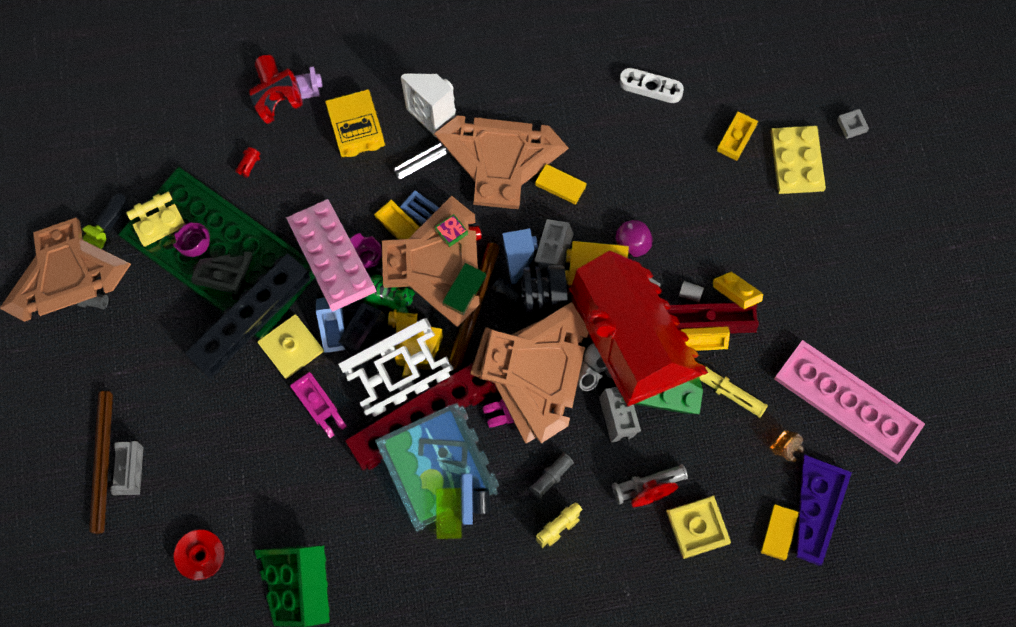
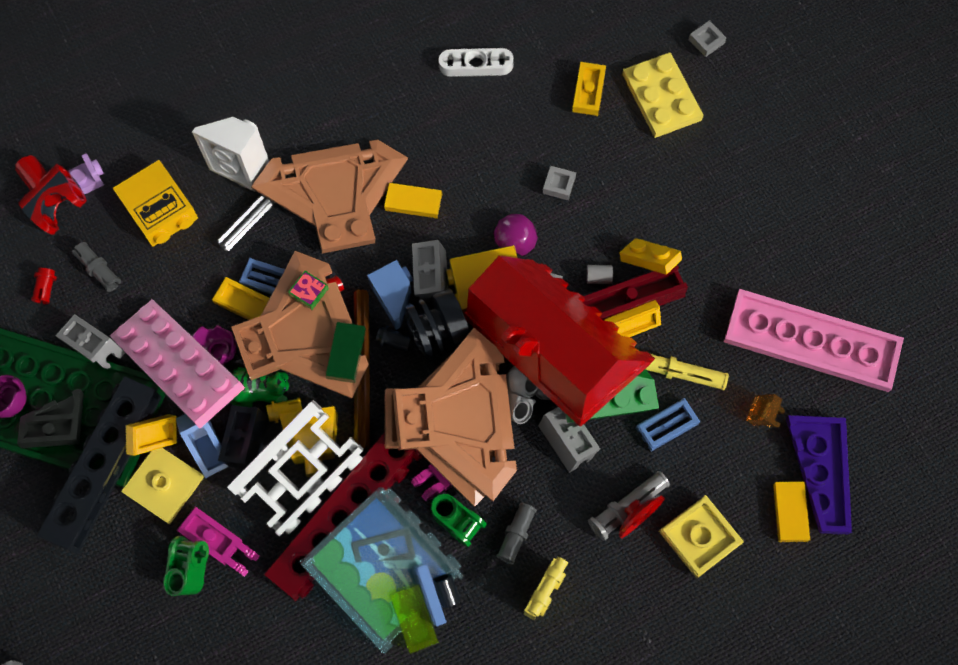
camera: 20 degrees left, 0 degrees up
(269, 217) = (89, 341): none -> light grey hinge
(287, 416) = (186, 568): none -> green piece
(293, 160) = (96, 266): none -> dark grey pin
(293, 305) = (151, 434): none -> yellow tile
(510, 452) = (458, 519): none -> green piece
(684, 206) = (559, 183): none -> light grey plate
(707, 439) = (647, 437): none -> medium blue tile

